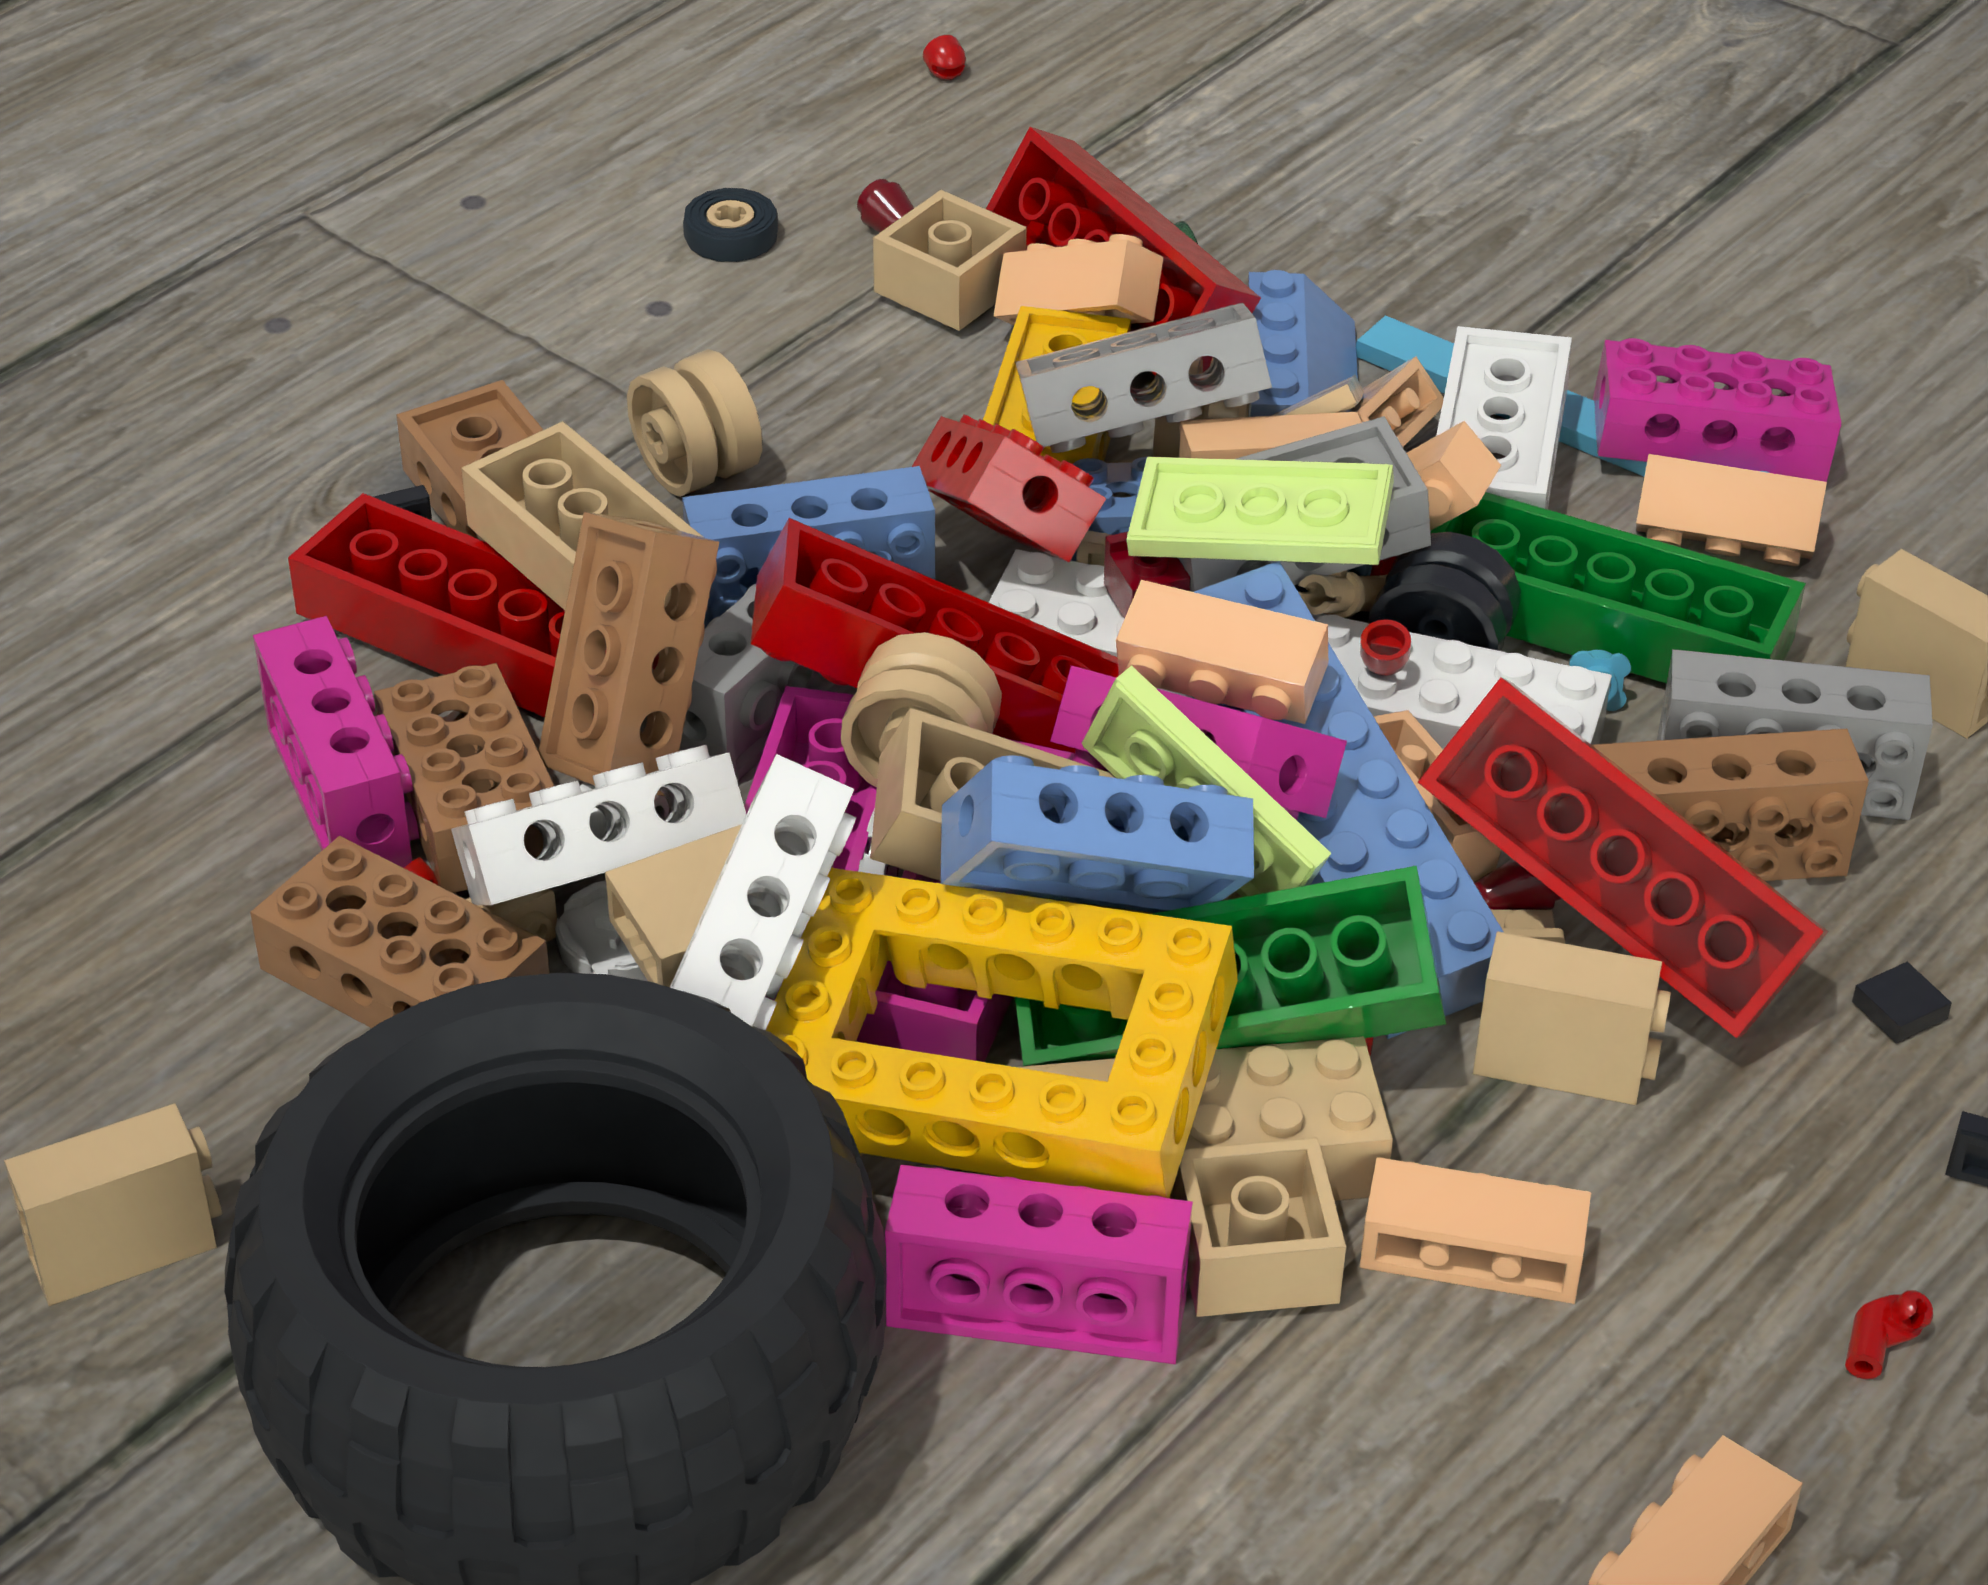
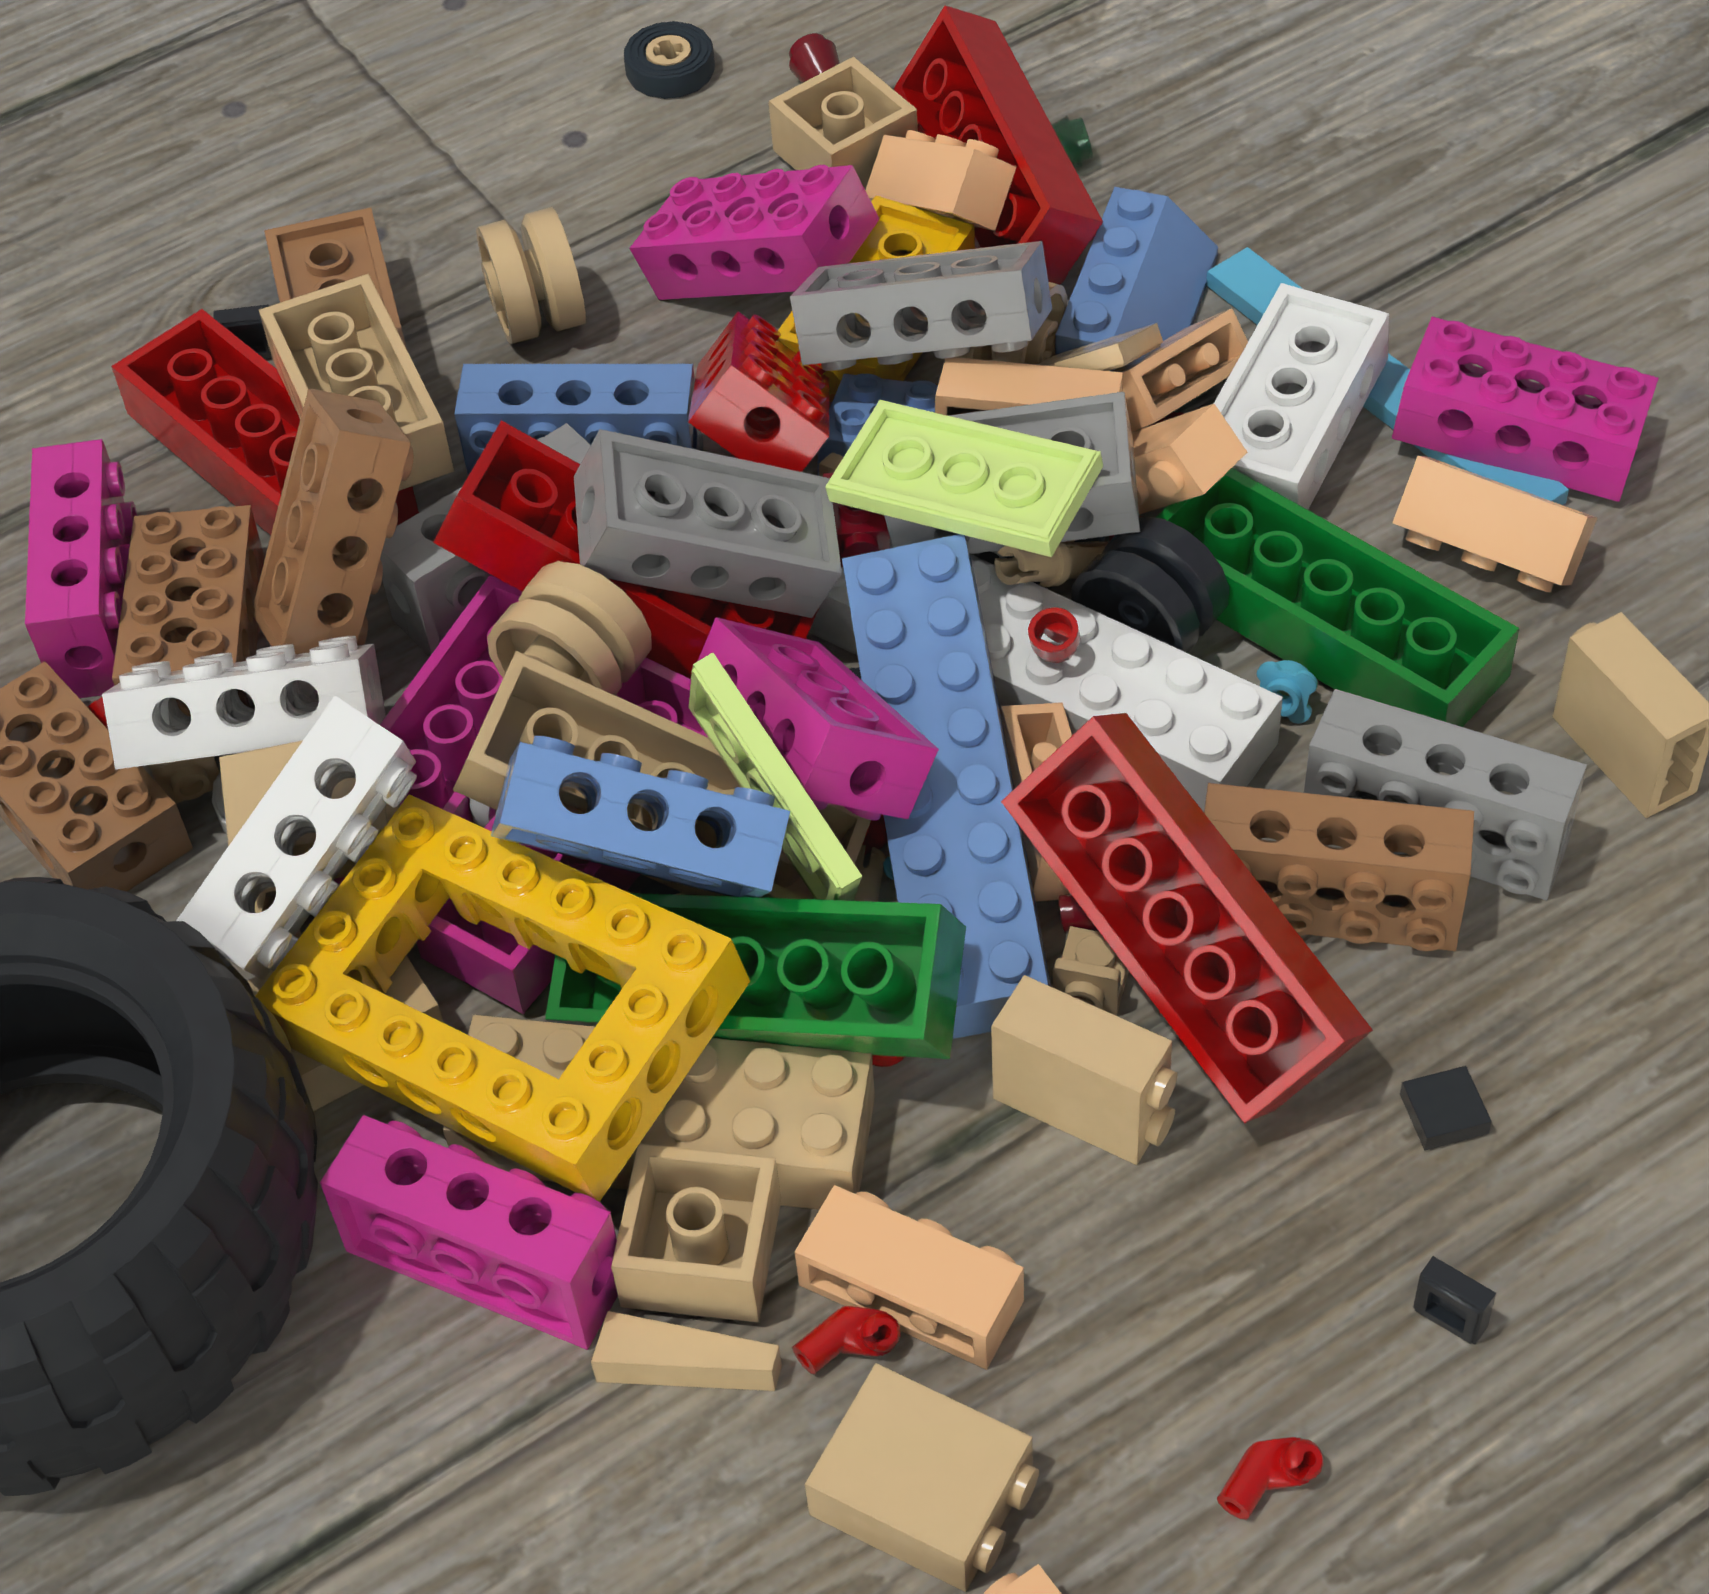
camera: 20 degrees right, 10 degrees up
(913, 353) = (753, 231): none -> dark pink brick
(1012, 585) = (706, 524): none -> light grey brick
(1224, 651) = (862, 629): light nougat brick -> none
(1281, 1344) = (676, 1355): none -> tan piece
(1435, 1292) = (848, 1332): none -> red arm
(1569, 1397) = (922, 1478): none -> tan brick

